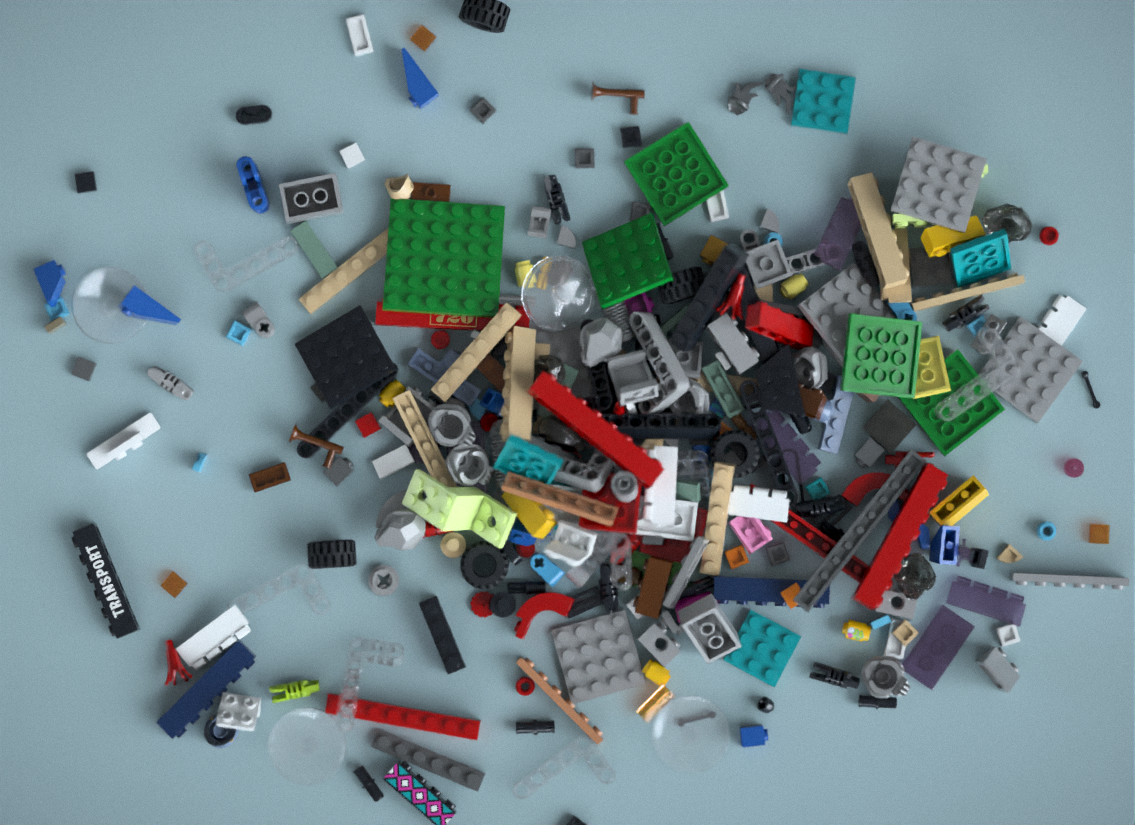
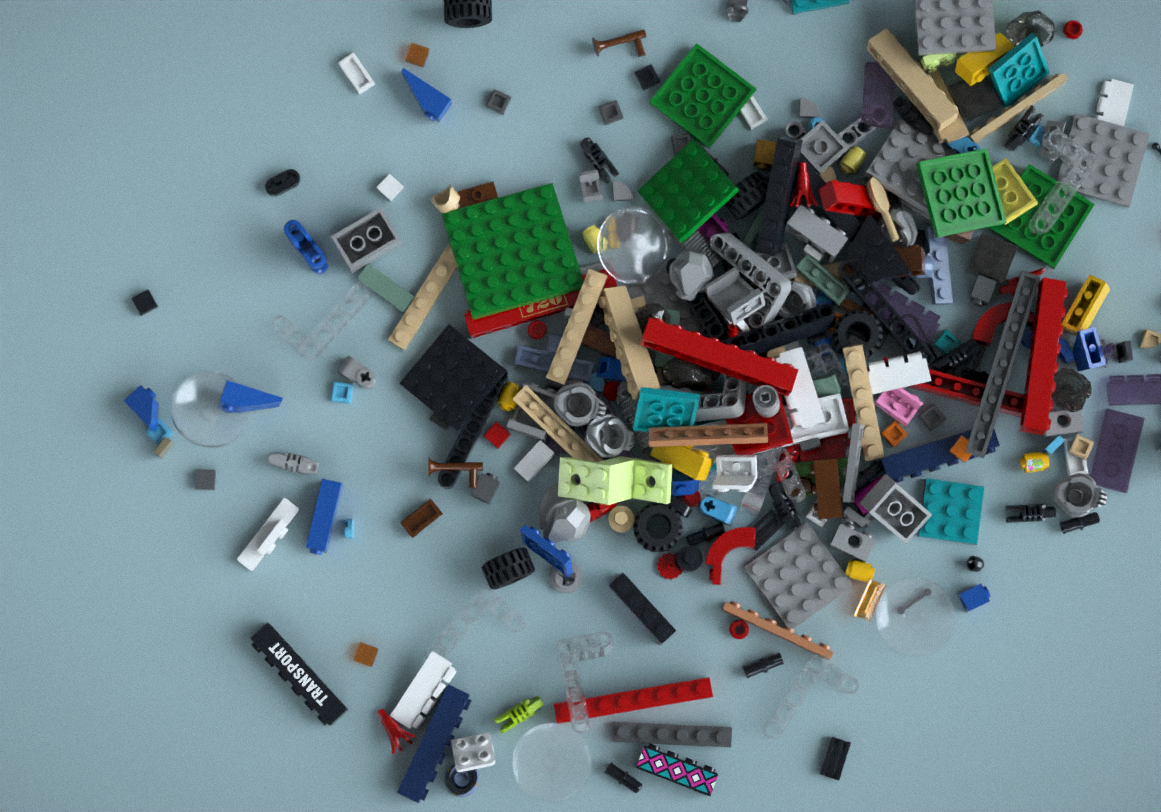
camera: 20 degrees left, 5 degrees down
(180, 443) = (324, 516): none -> blue brick
(373, 550) = (546, 550): none -> blue plate
(803, 338) = (882, 205): none -> tan piece

